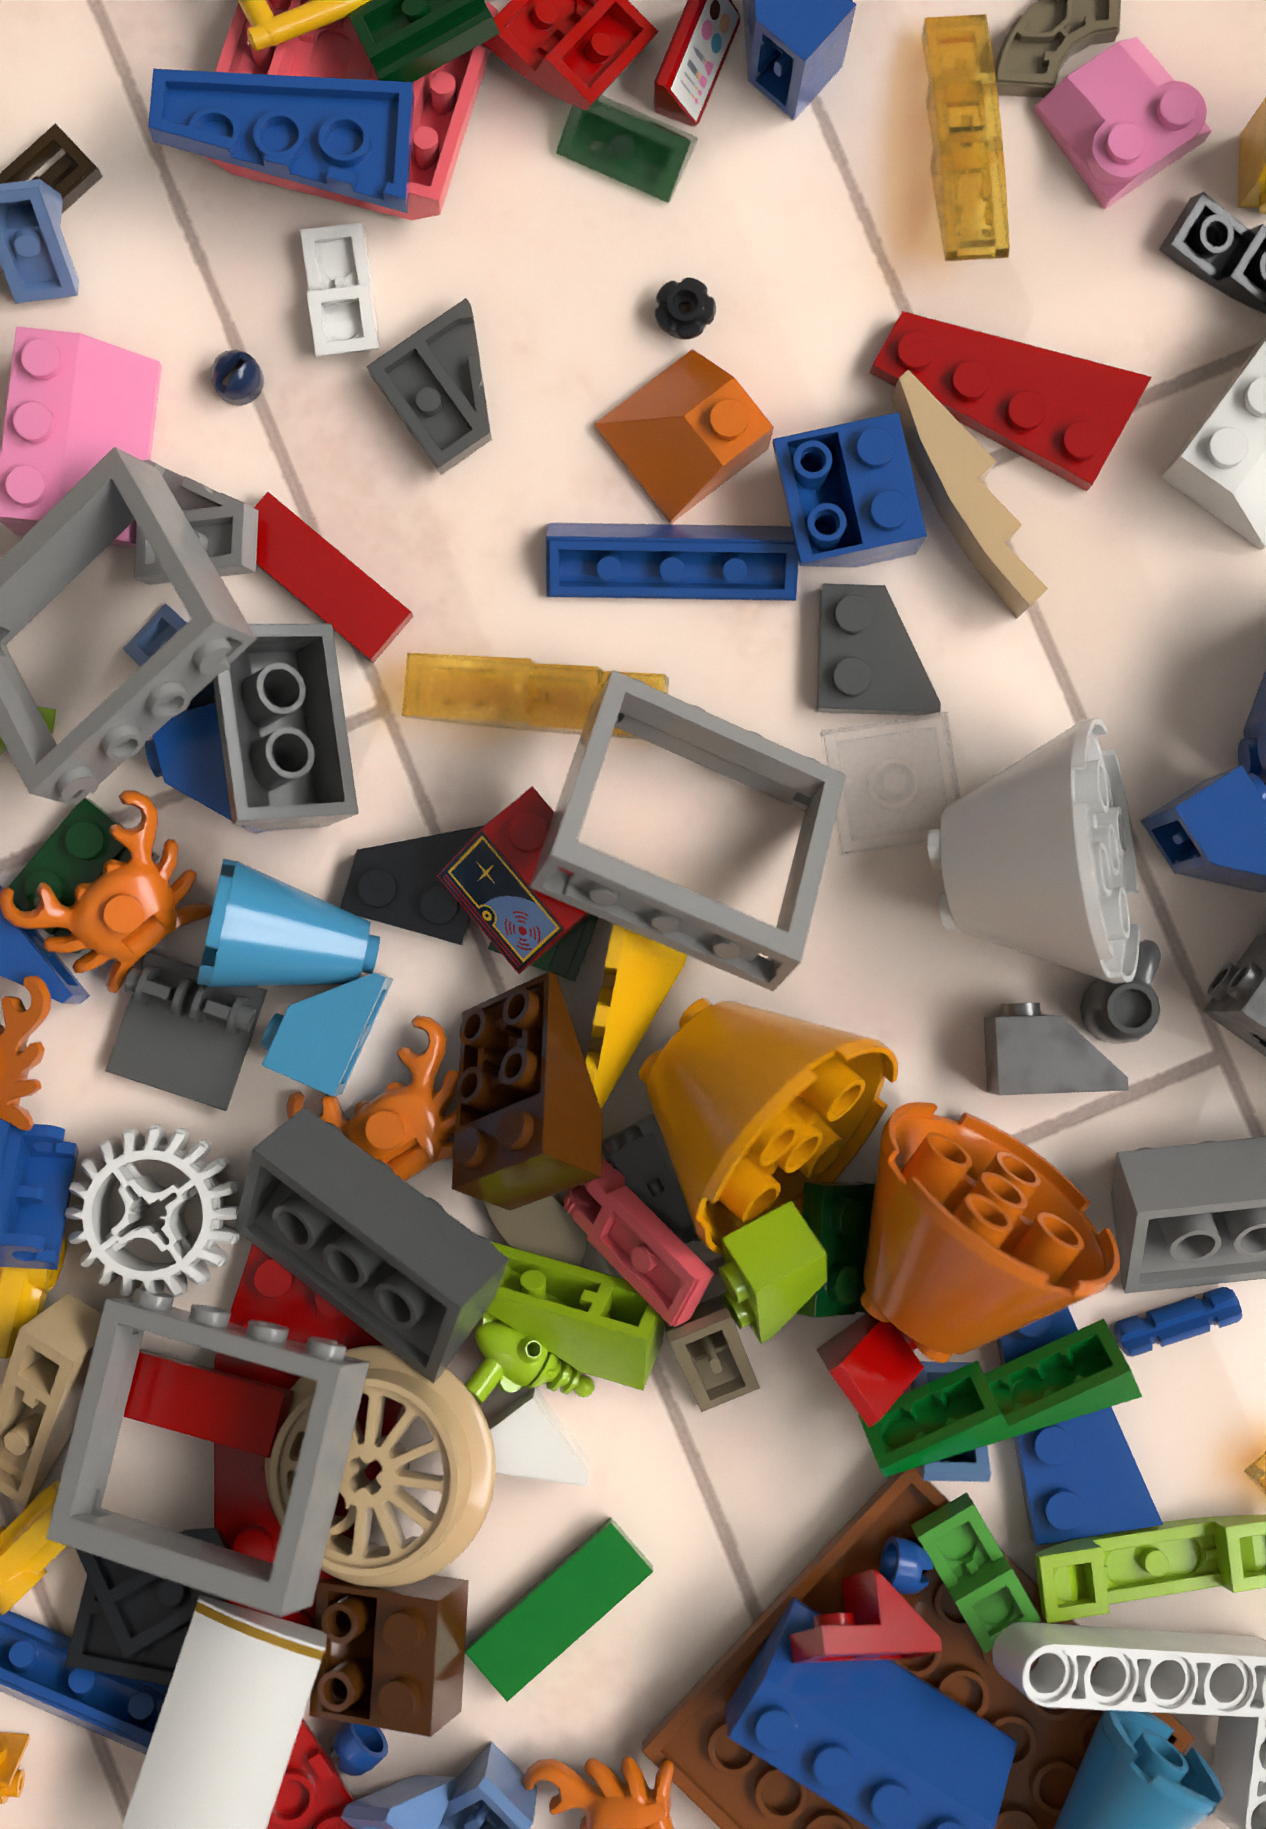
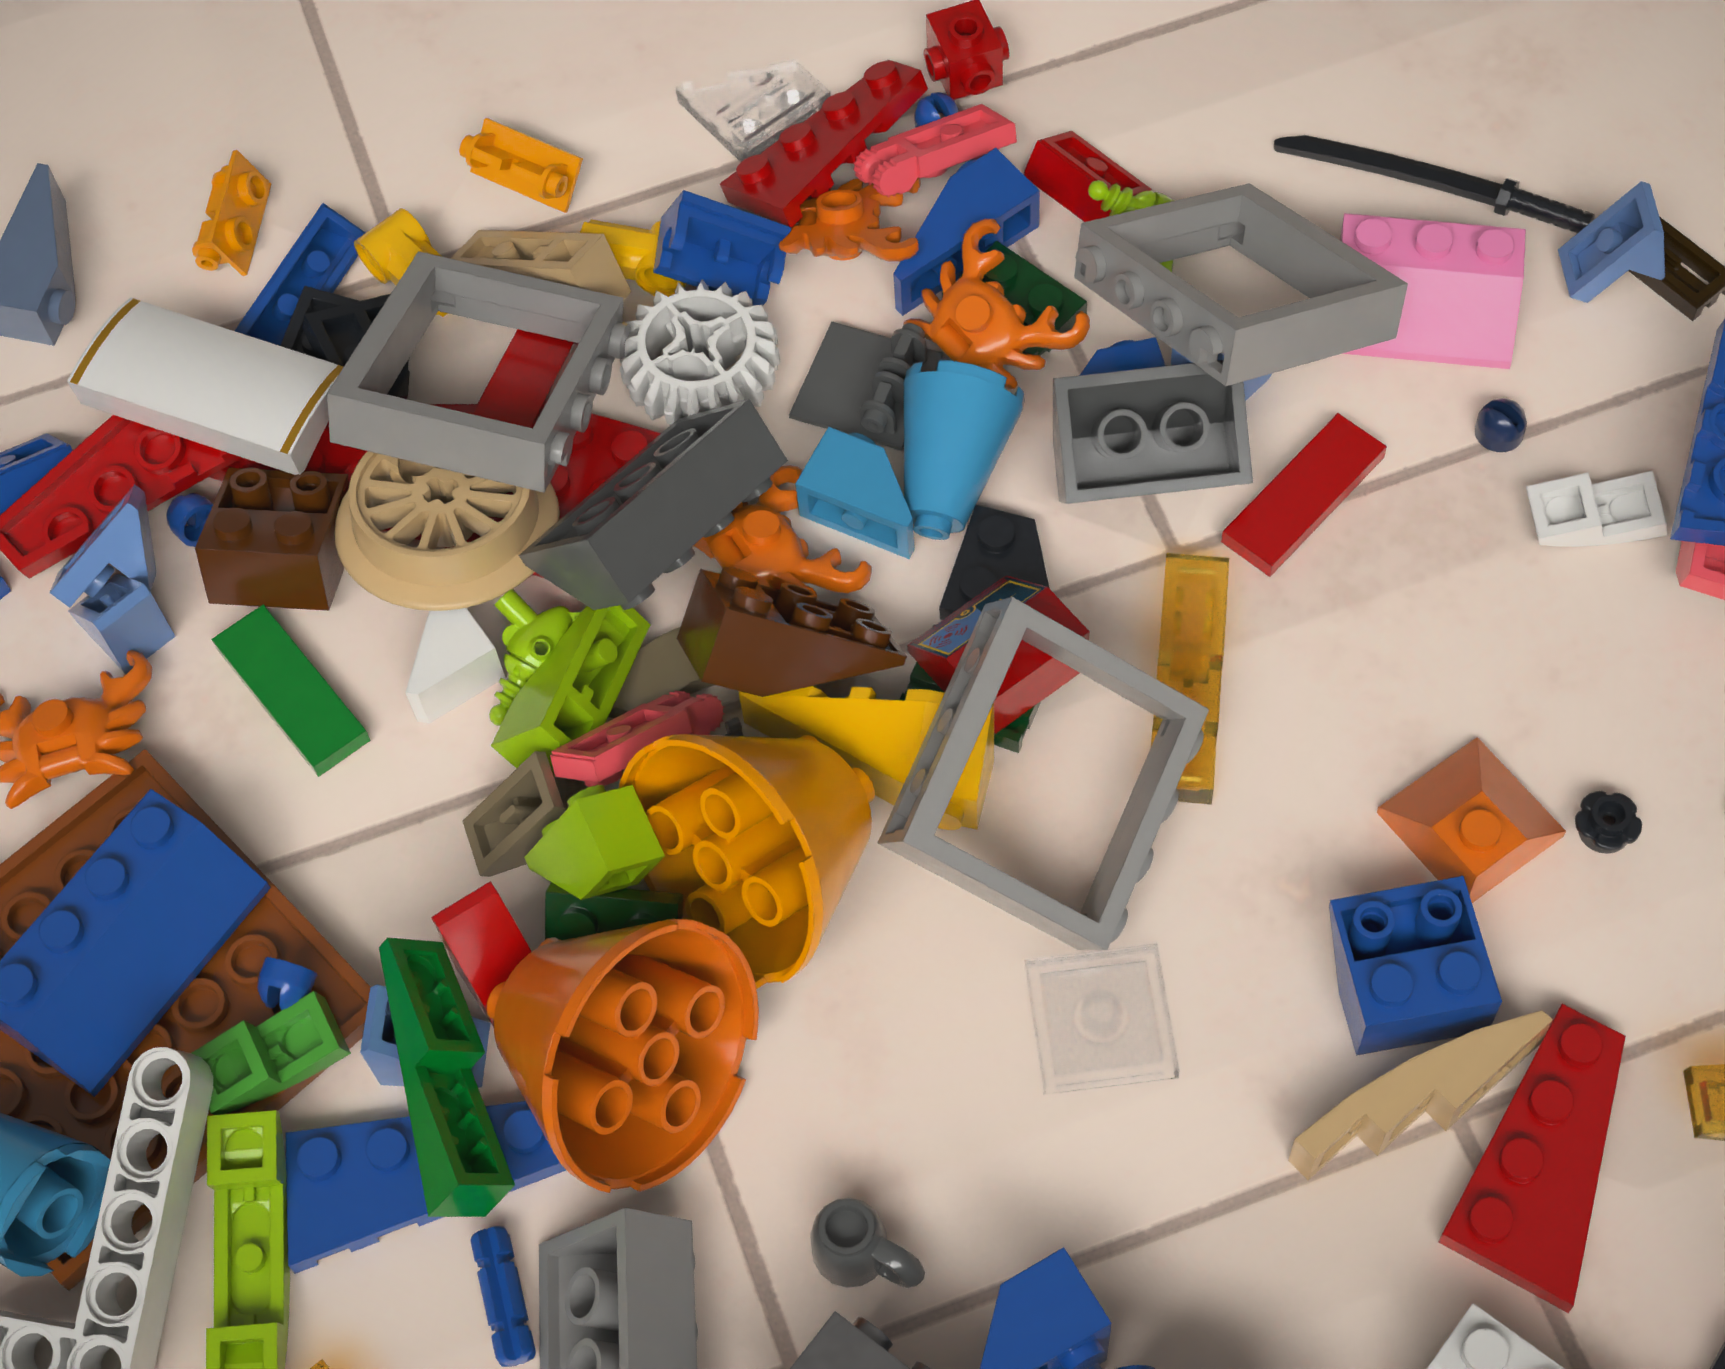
camera: 100 degrees right, 25 degrees down
(221, 523) = (1350, 385): light grey wing -> none
(439, 387) = (1503, 593): dark grey wing -> none
(671, 561) = (1334, 799): blue slope -> none
(868, 656) = (1240, 994): dark grey wing -> none
(873, 1628) = (222, 949): red slope -> none
(1043, 1055) = (801, 1154): flat silver slope -> none
(1046, 858) = (1014, 1150): white cone -> none

